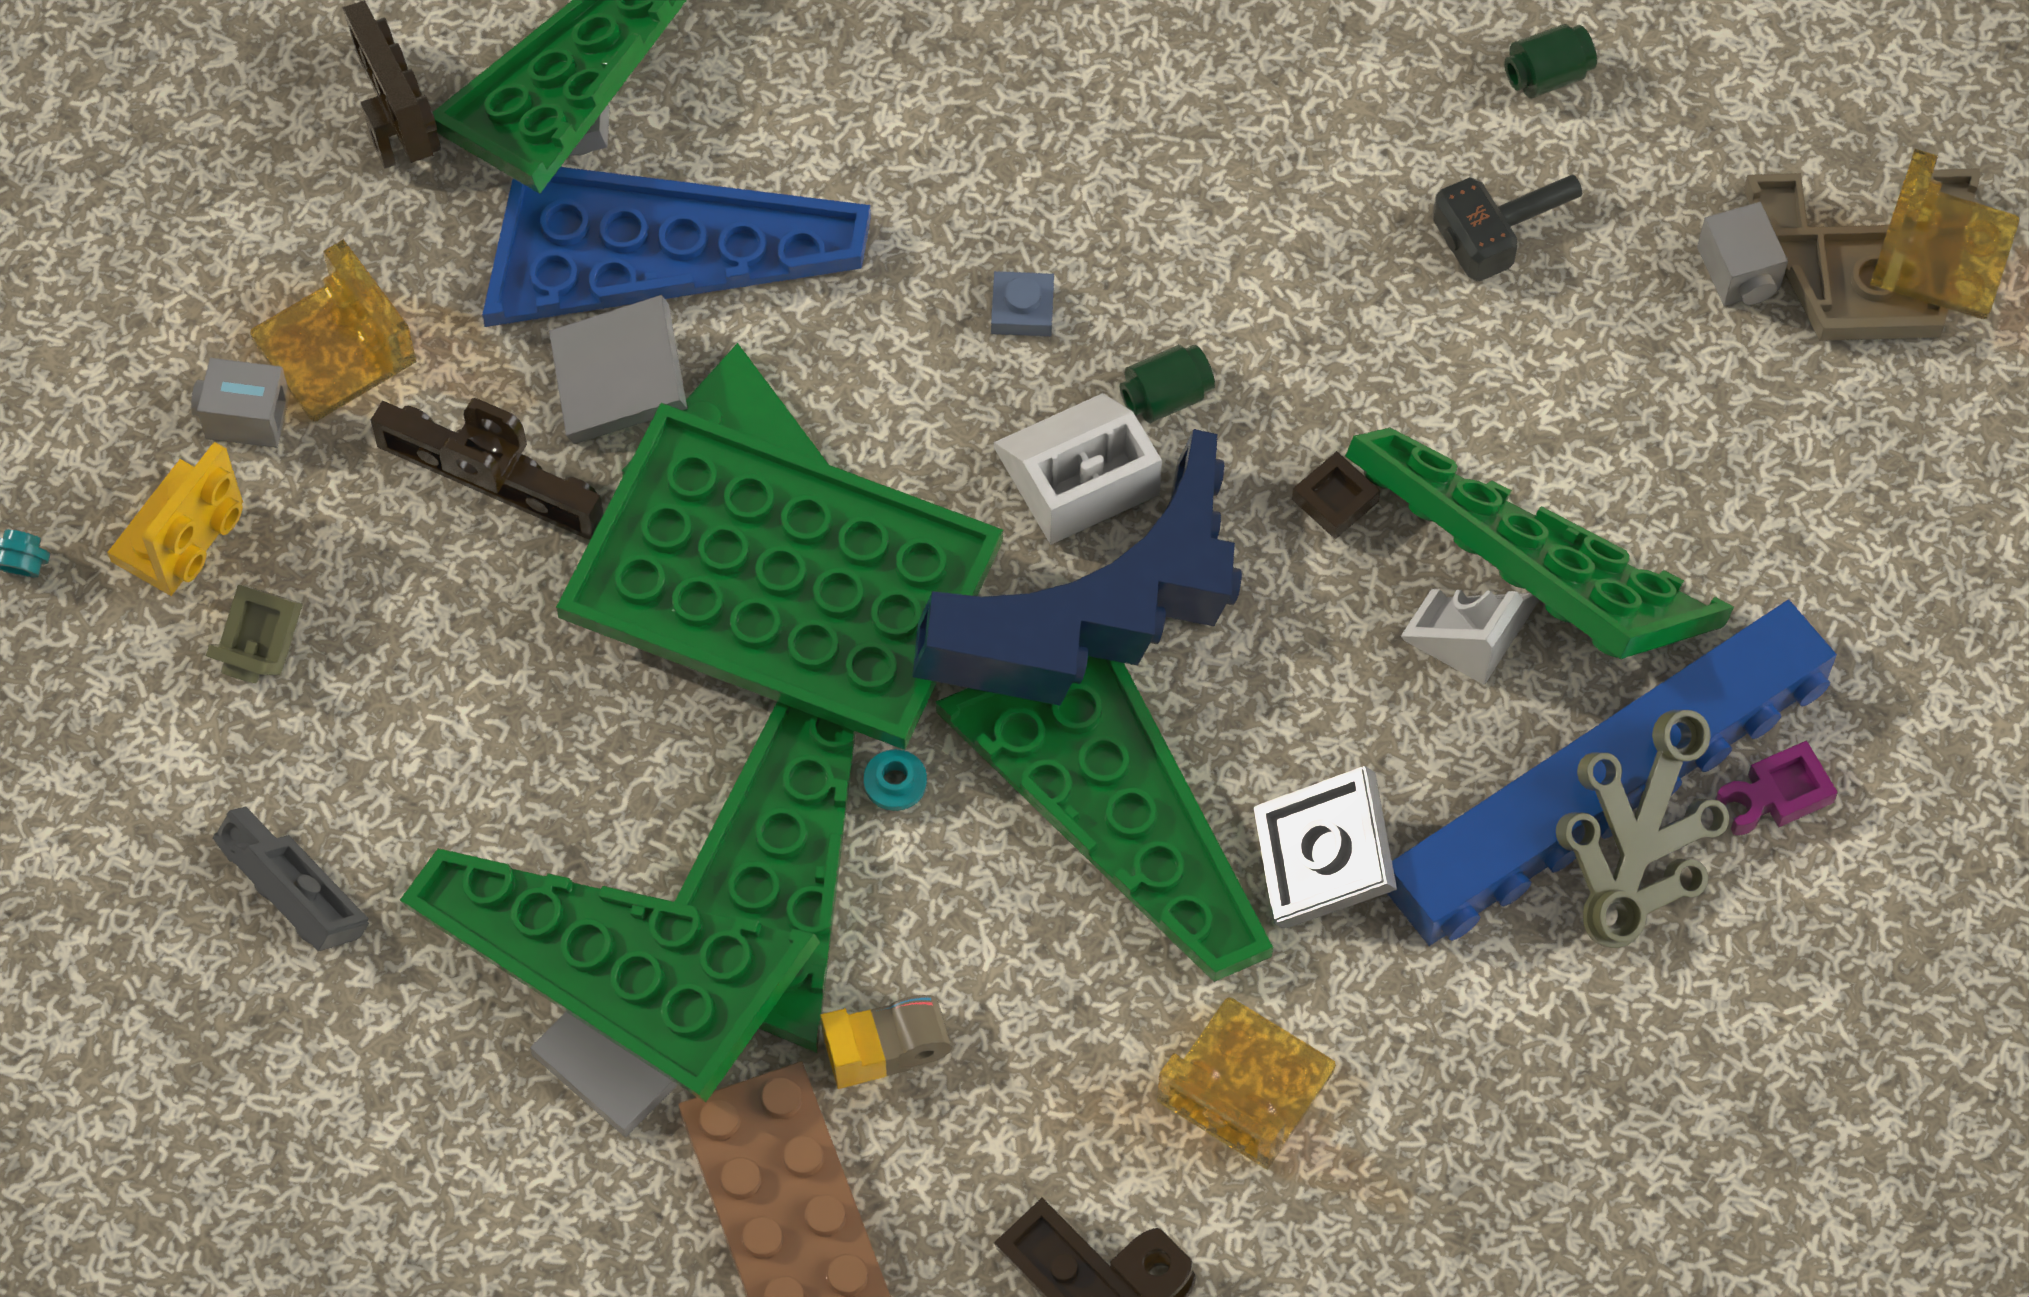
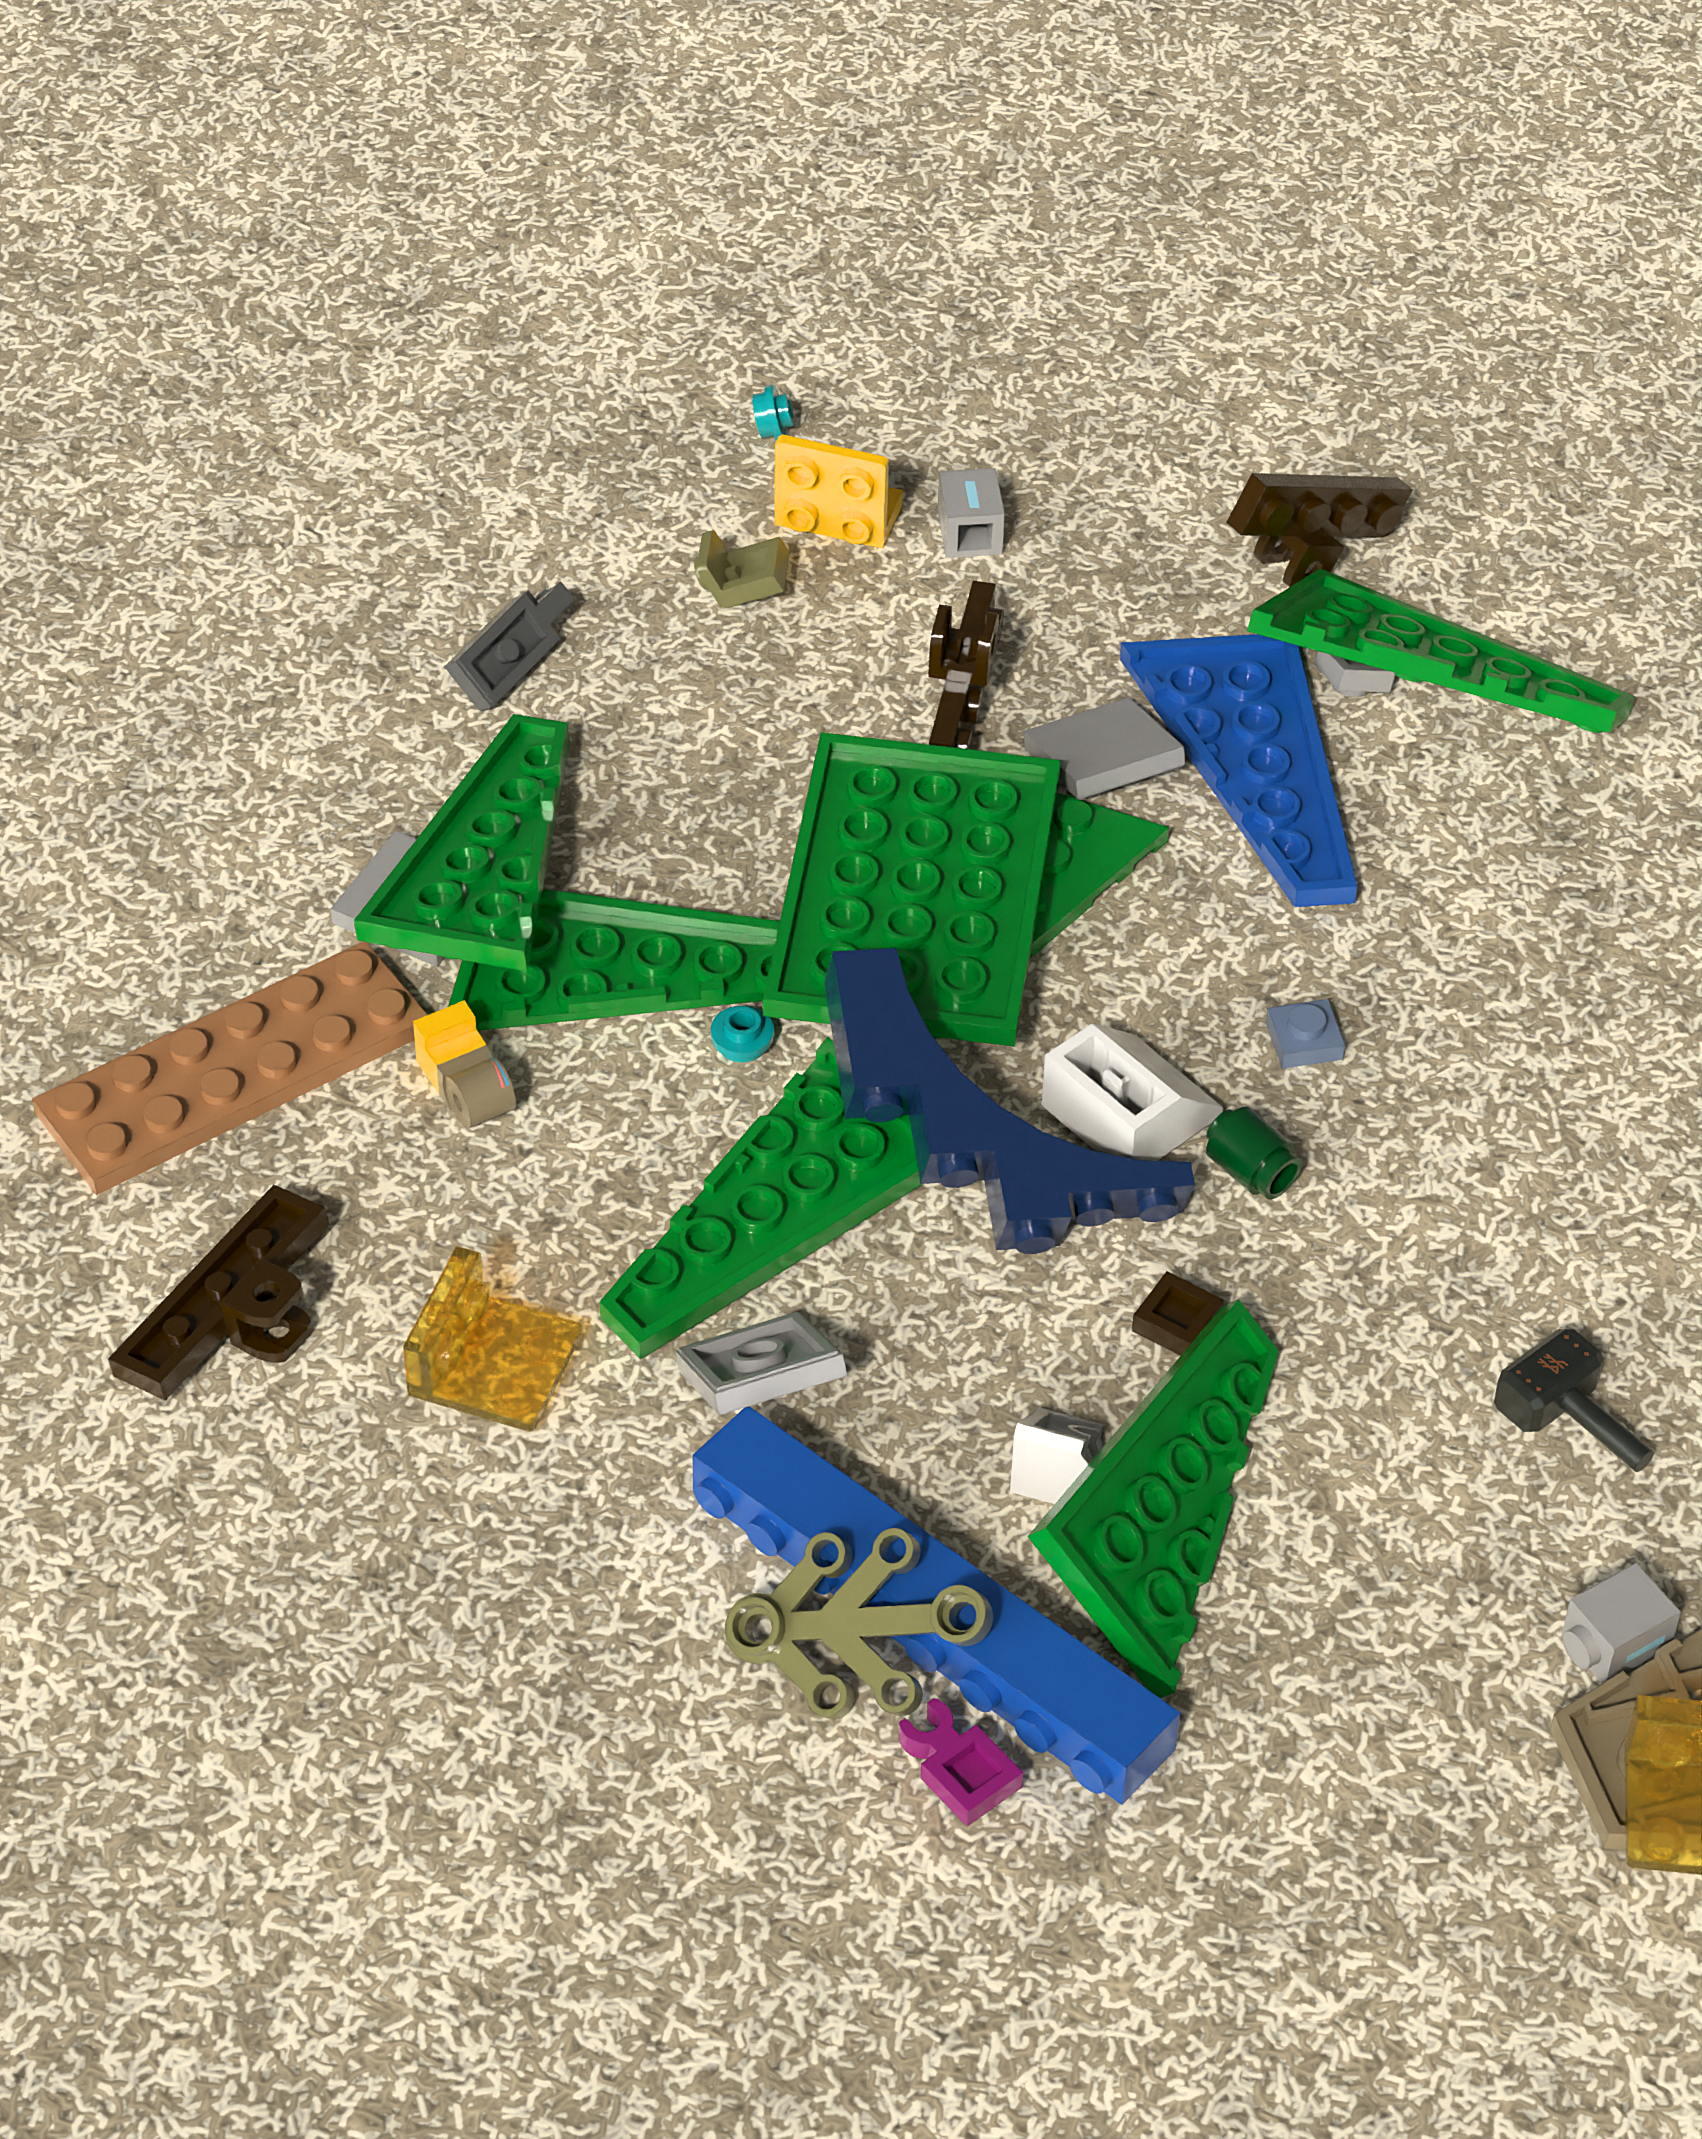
camera: 75 degrees right, 15 degrees down
(337, 338) = (1062, 561): clear yellow bracket -> none

